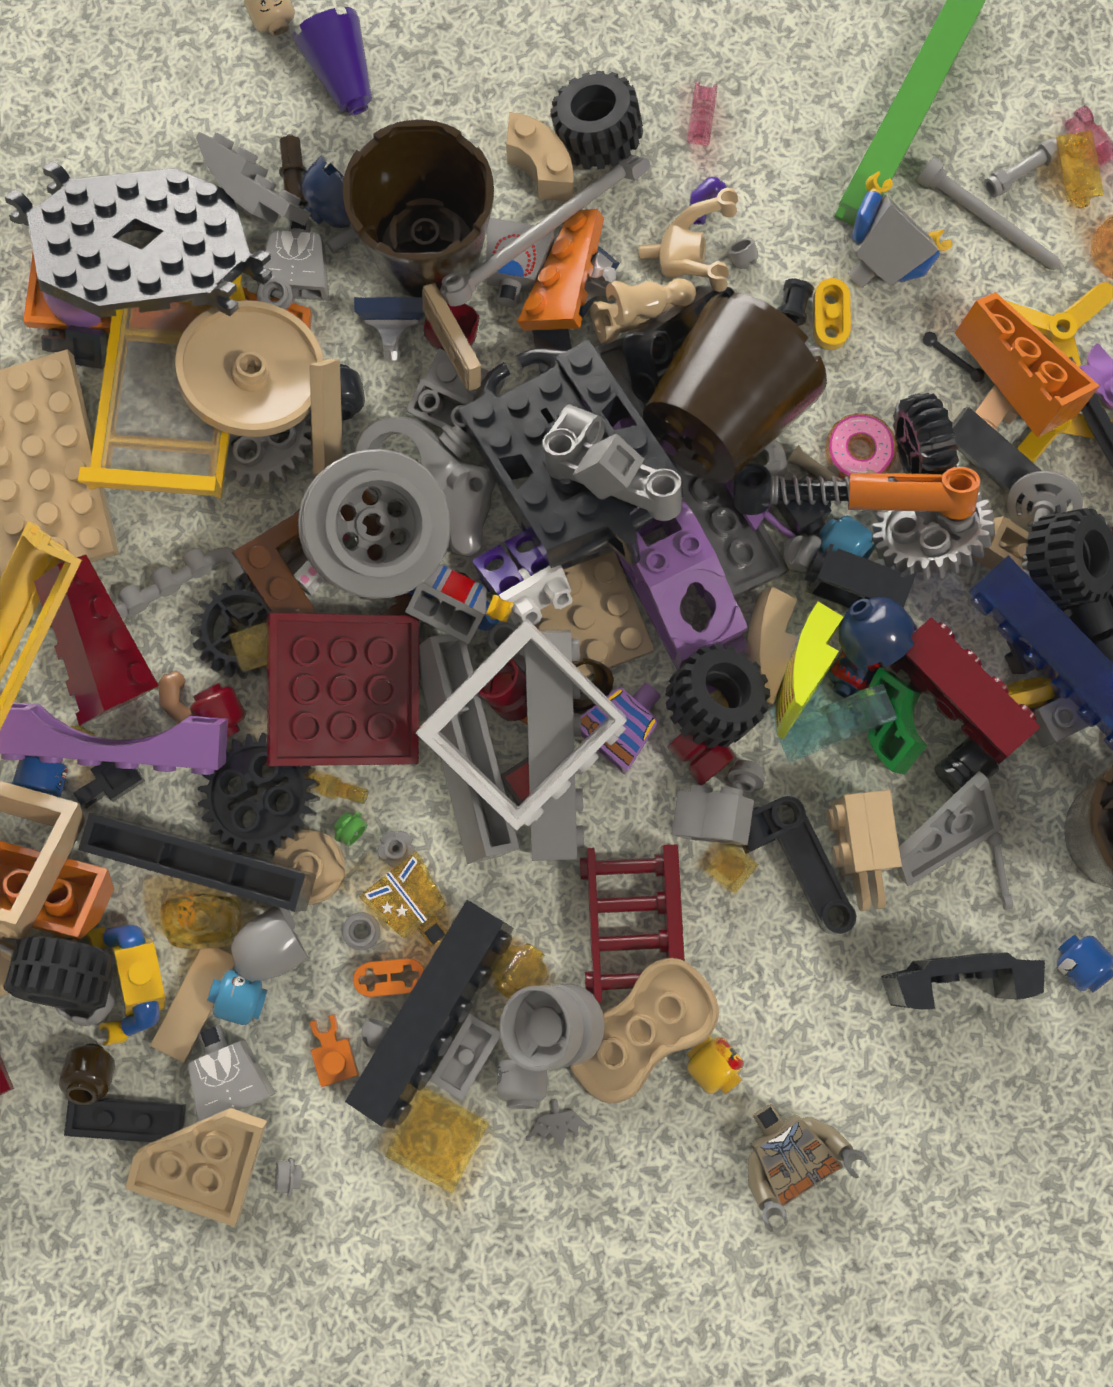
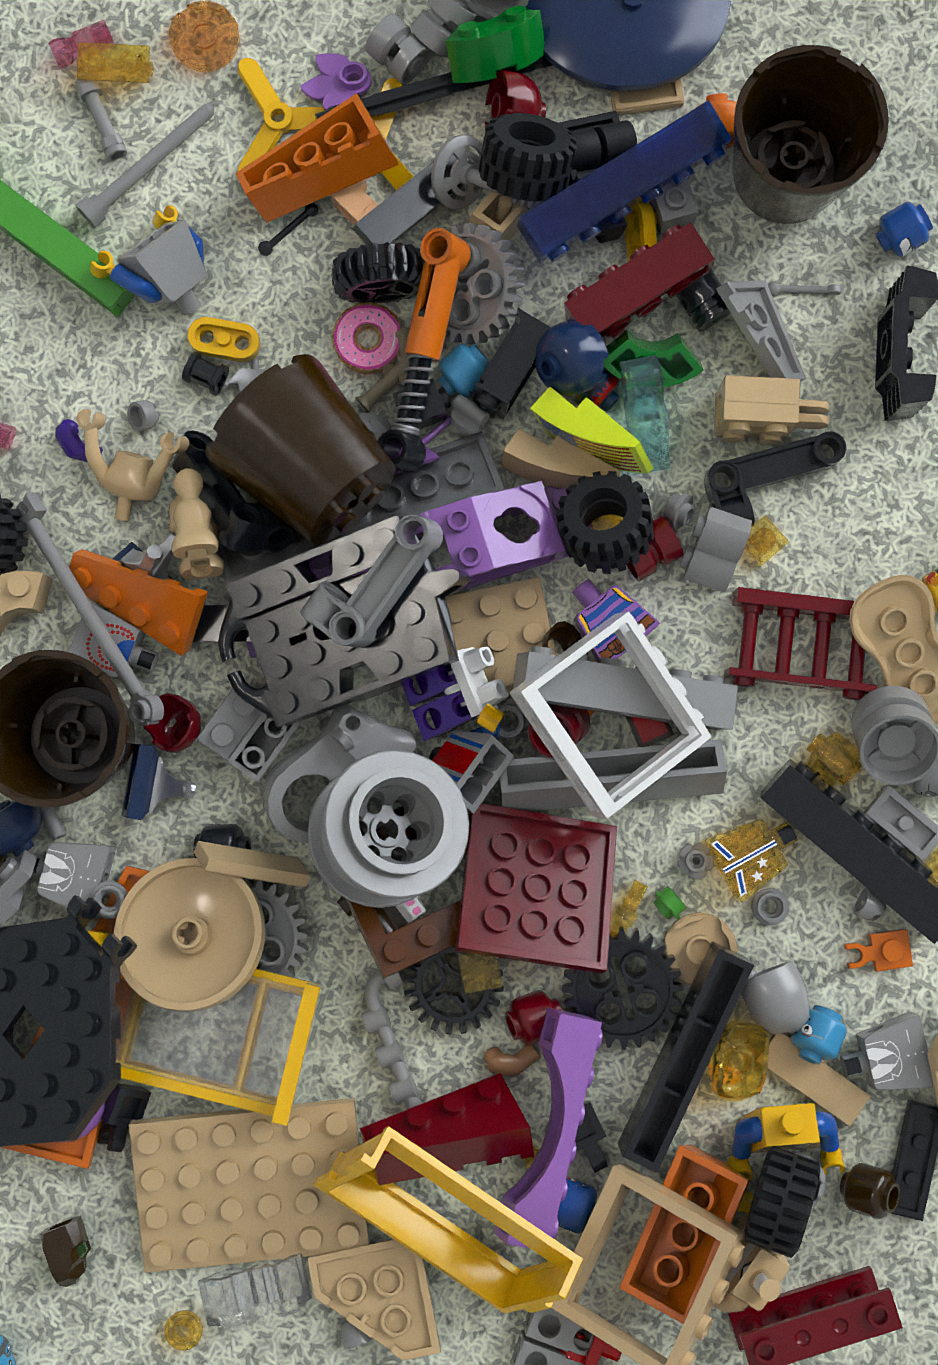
camera: 75 degrees left, 5 degrees up
(386, 967) = (809, 884): orange beam -> none
(451, 337) = (193, 723): tan tile -> none
(456, 440) = (301, 736): light grey plate -> none
(608, 466) = (382, 583): light grey panel -> none

